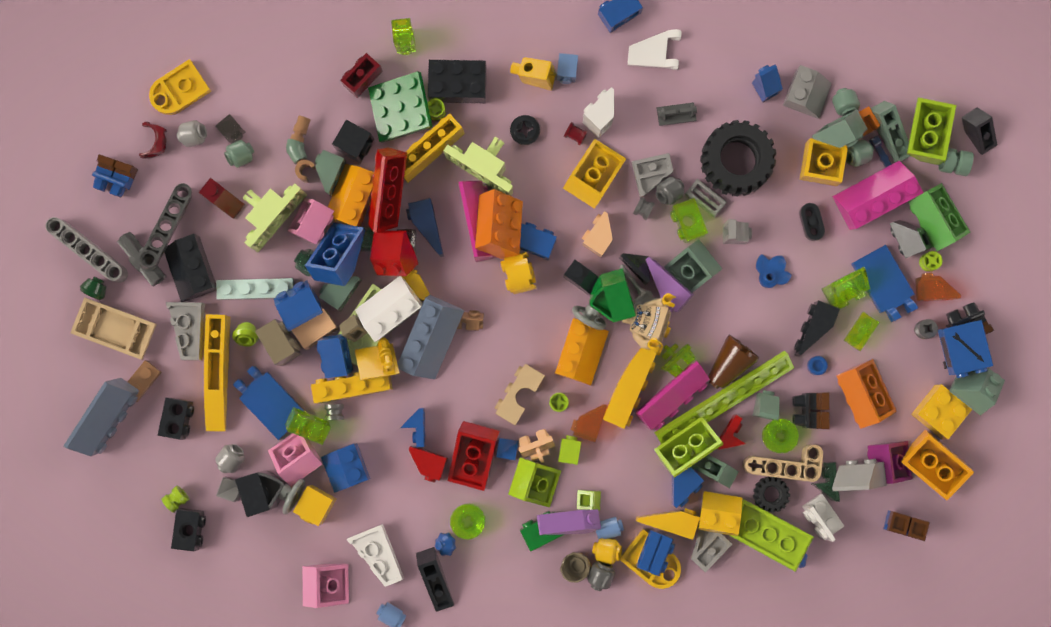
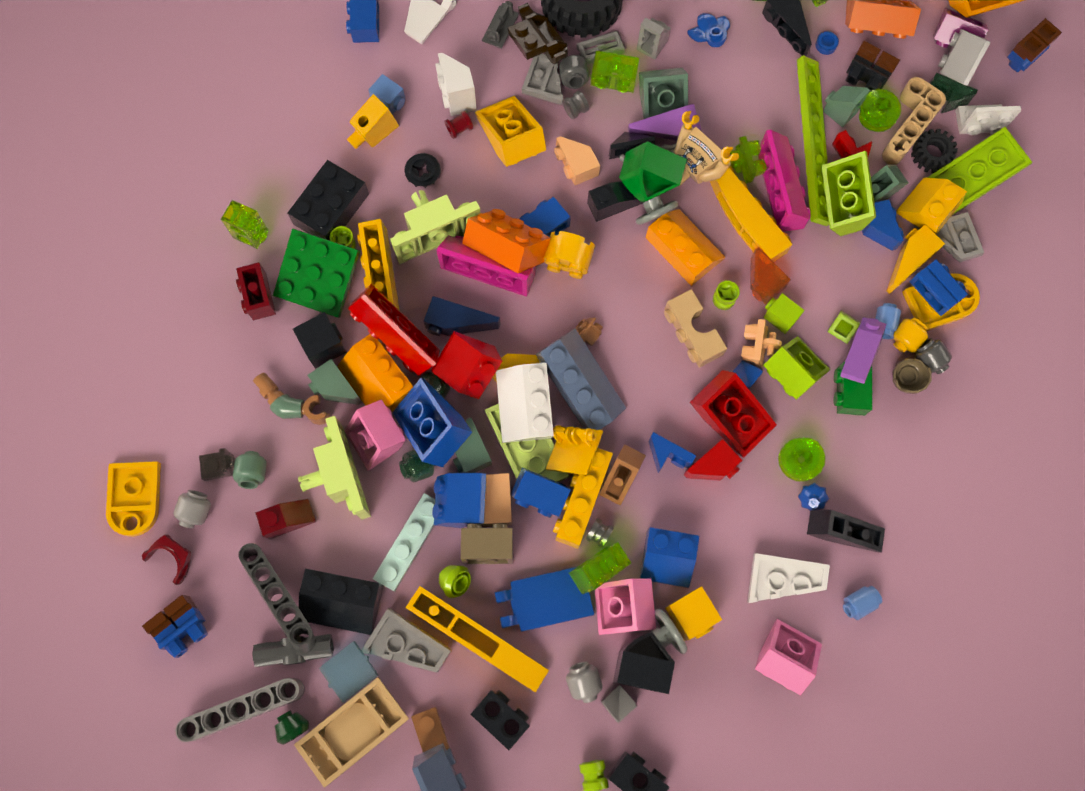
camera: 65 degrees left, 10 degrees down
(149, 302) = (348, 671): none -> clear light blue piece
(352, 328) = (522, 454): dark tan slope -> none
(384, 404) = (622, 474): none -> medium nougat slope
(681, 147) = (537, 36): none -> dark brown plate
(731, 362) = (781, 108): reddish brown cone -> none

